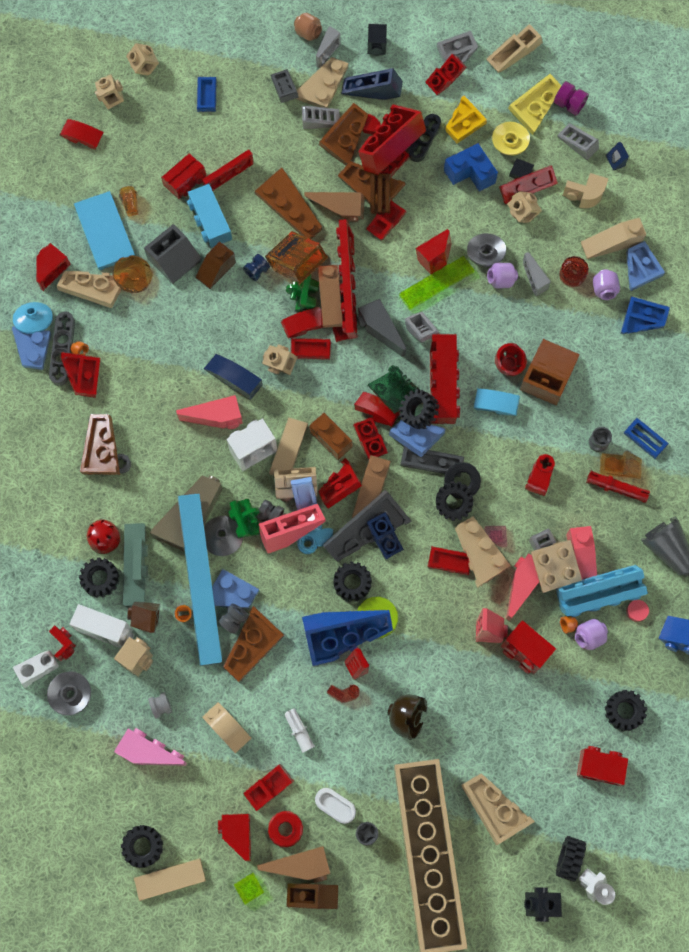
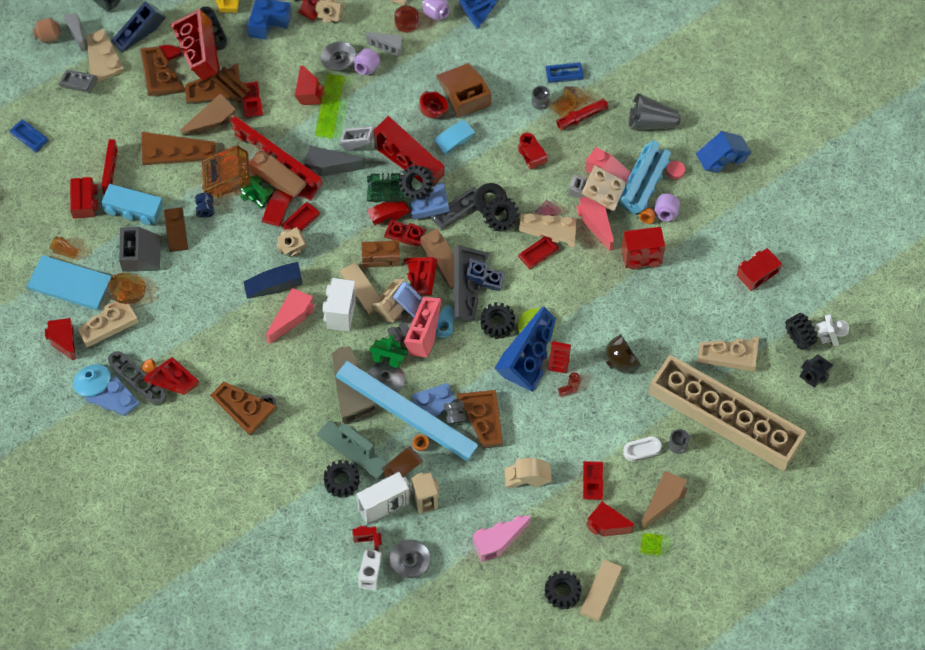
camera: 50 degrees left, 10 degrees down
(100, 532) = (309, 450): red helmet -> none
(160, 705) = (473, 505): light grey wheel -> none
(293, 820) = (631, 500): red piece -> none
(299, 730) = (571, 431): white axle -> none
(312, 896) = (690, 506): reddish brown slope -> none
(318, 123) = (127, 85): light grey slope -> none
(490, 627) = (607, 260): coral slope -> none
(638, 707) = (734, 237): black tyre -> none

